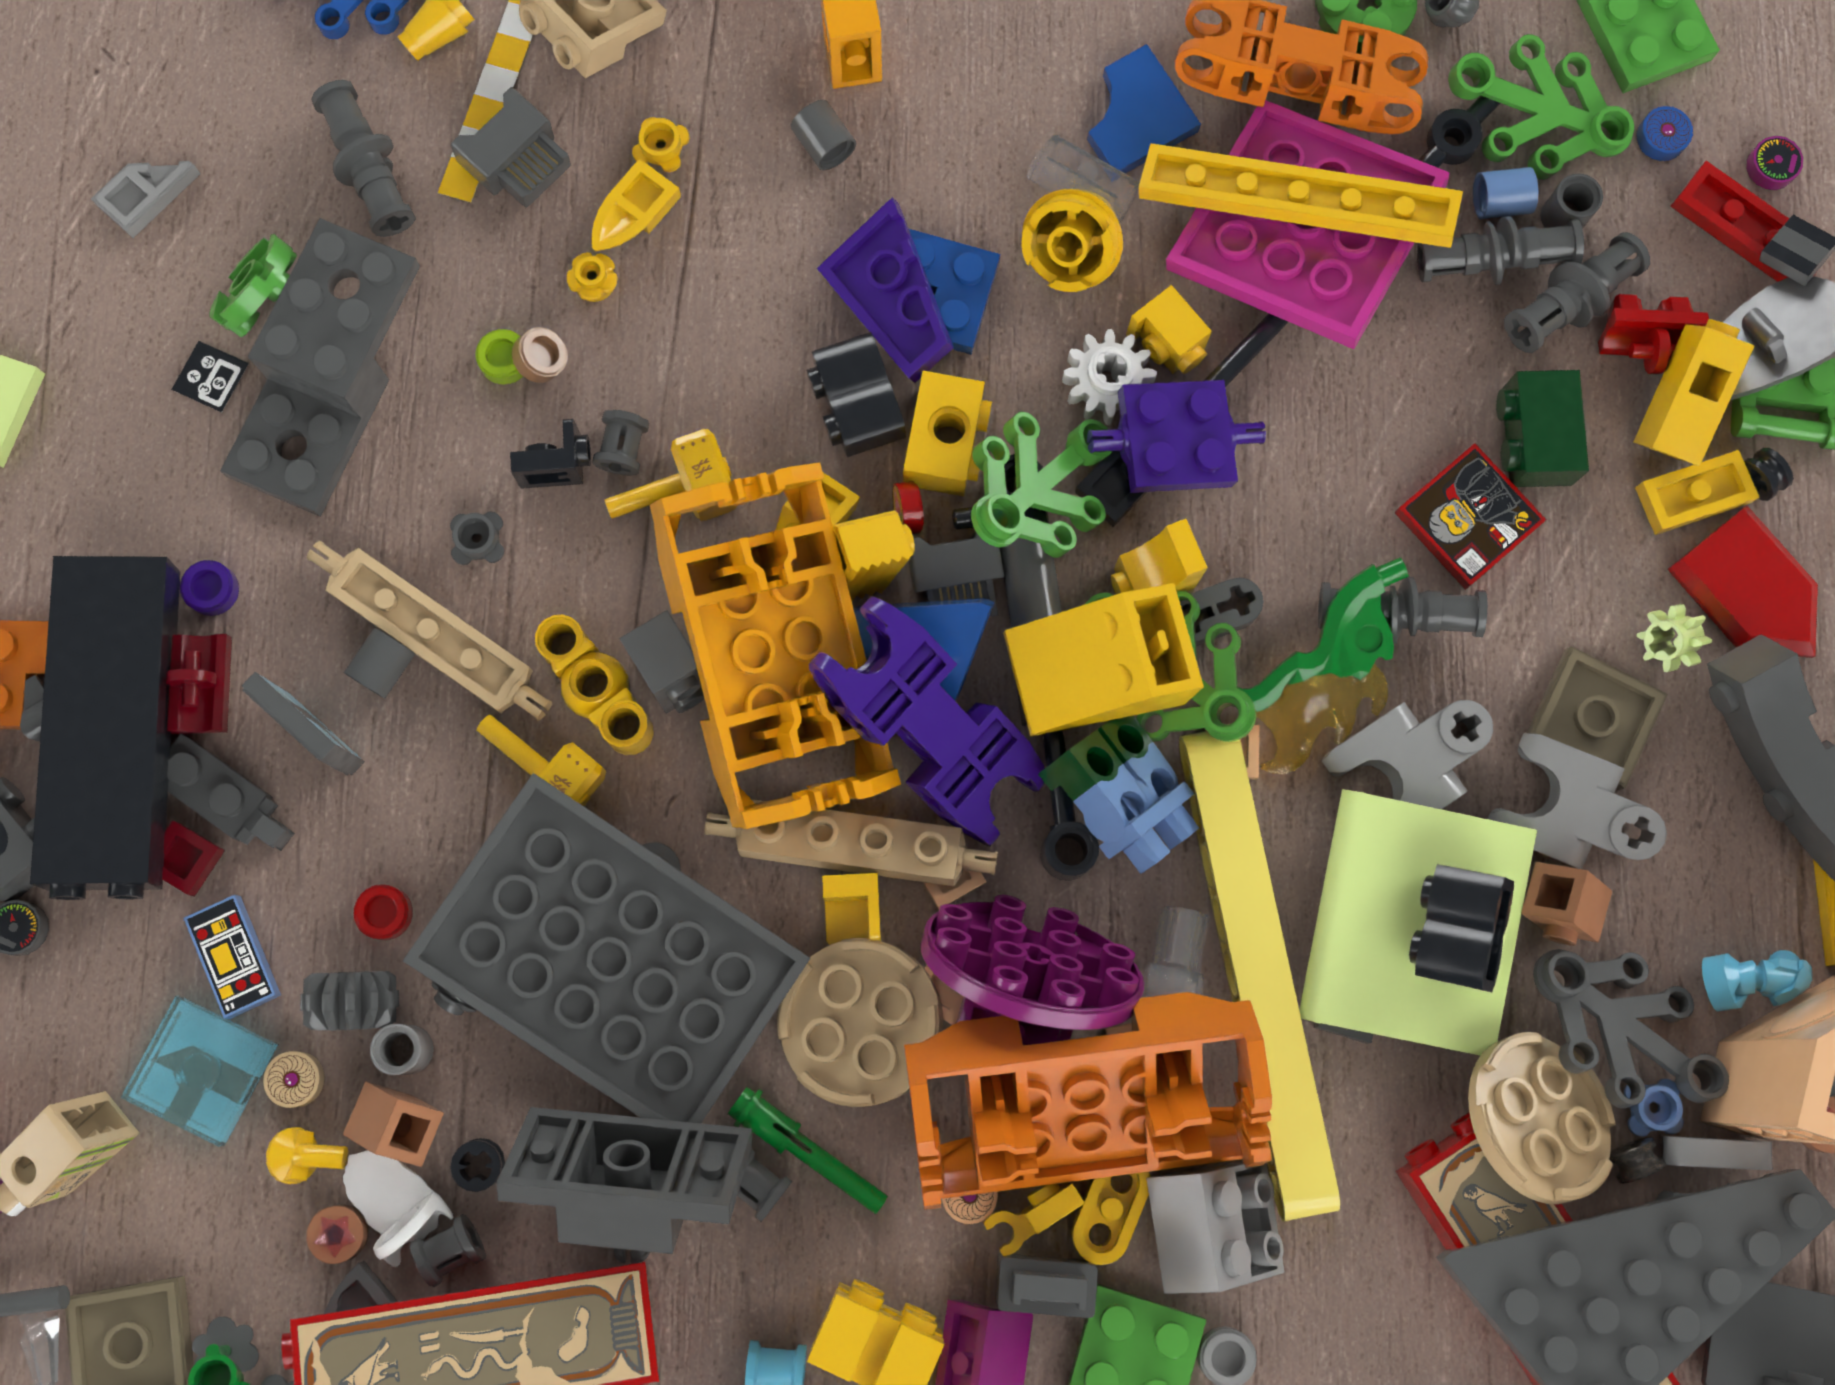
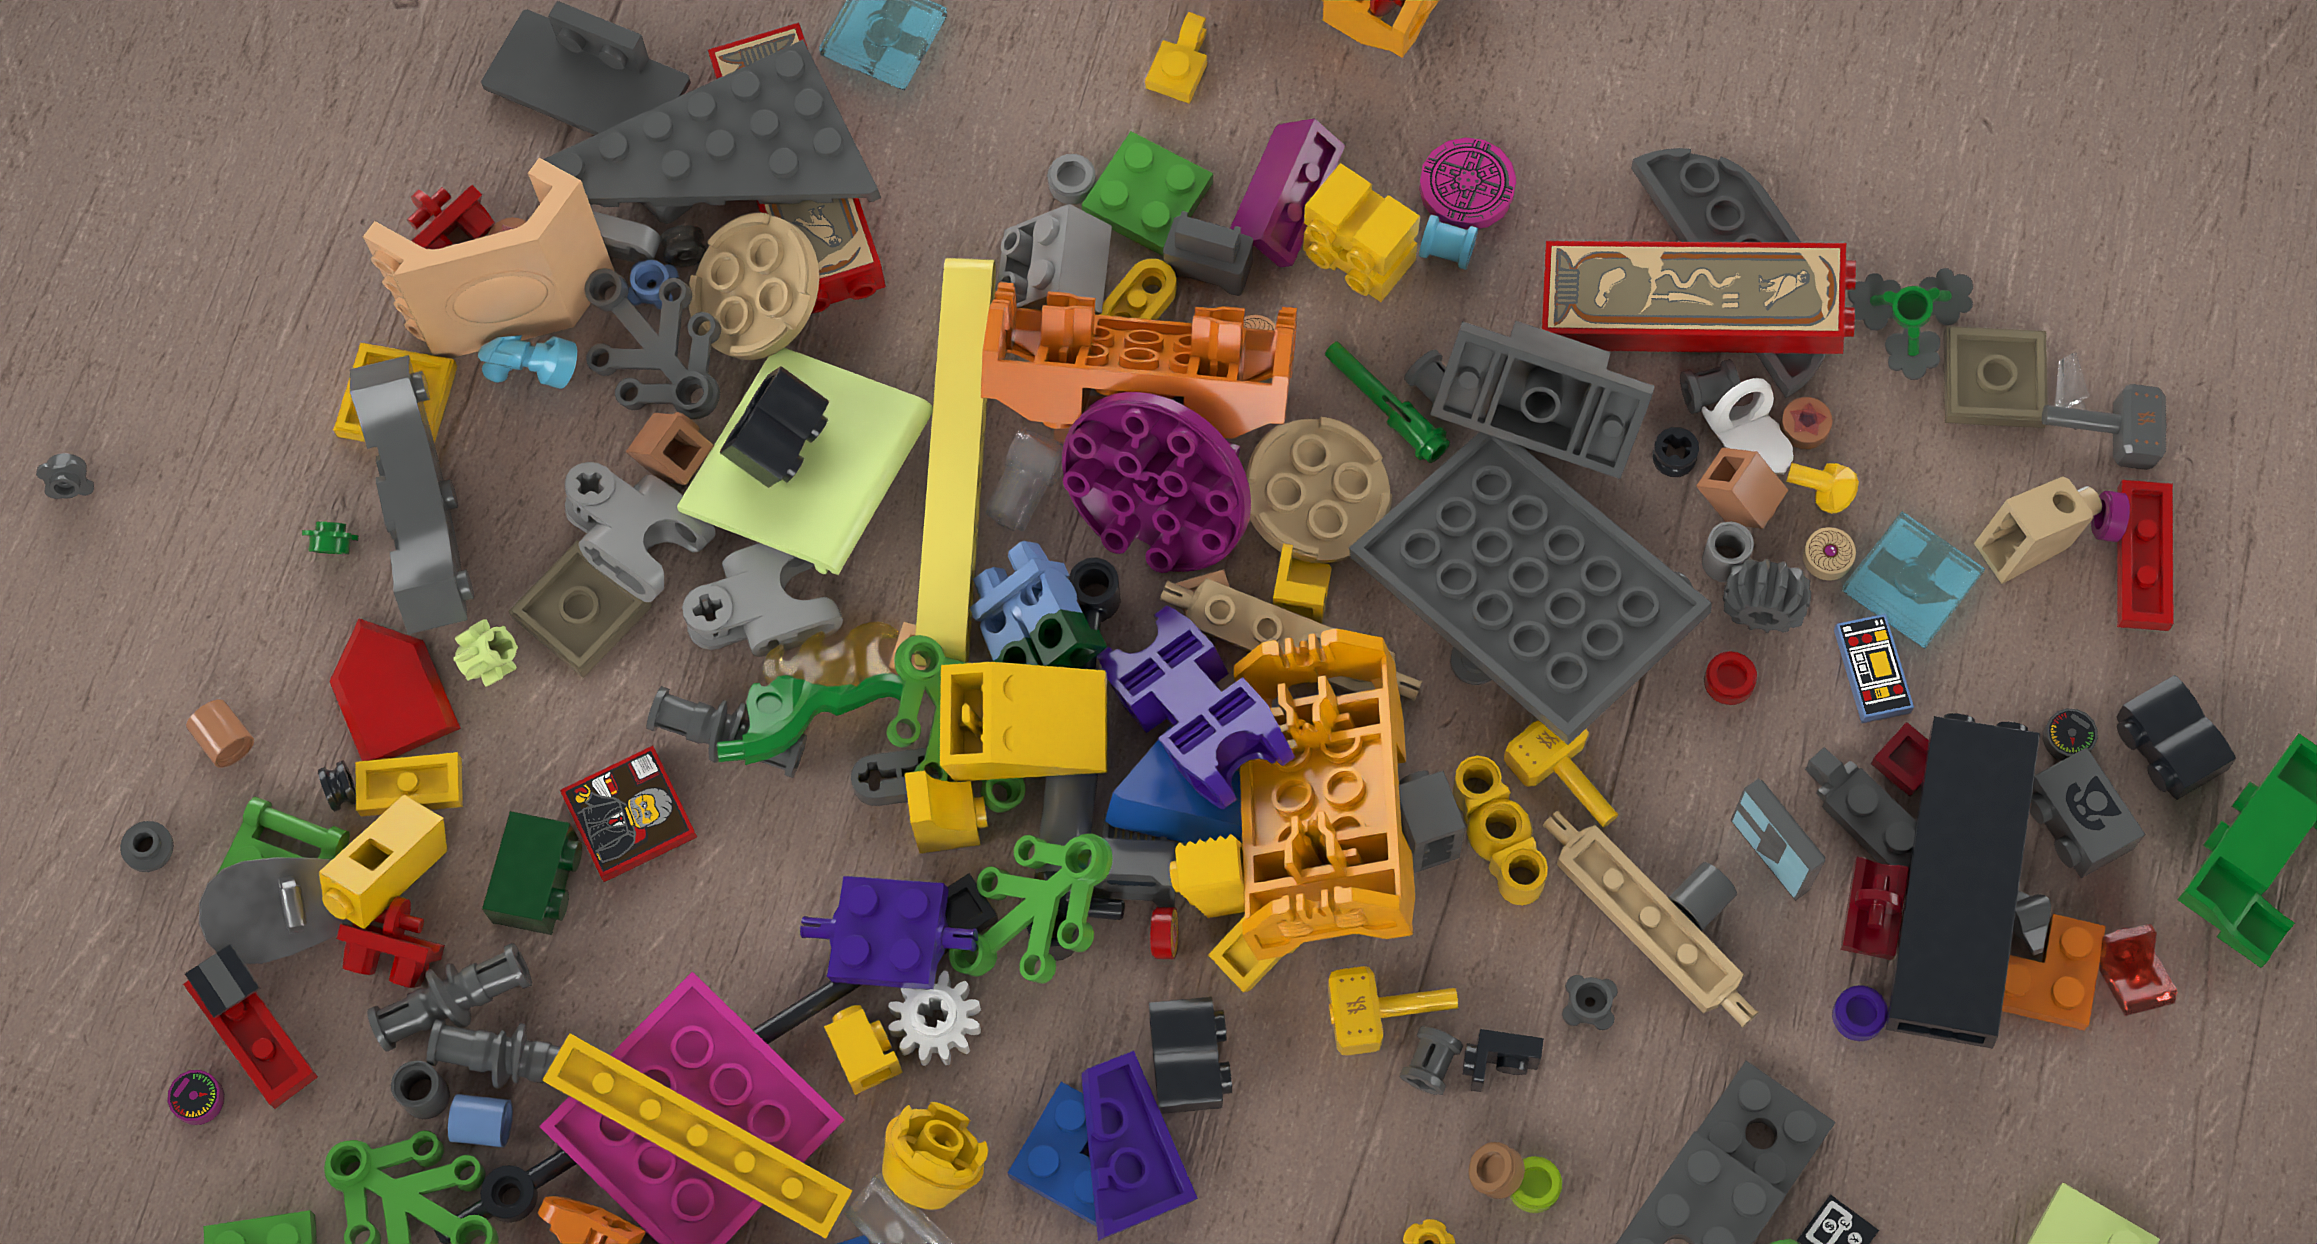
camera: 160 degrees left, 10 degrees down
(945, 403) = (1109, 1027): yellow brick -> none
(1047, 1207) = (1182, 306): yellow plate -> none
(1664, 133) = (293, 1153): blue tile -> none

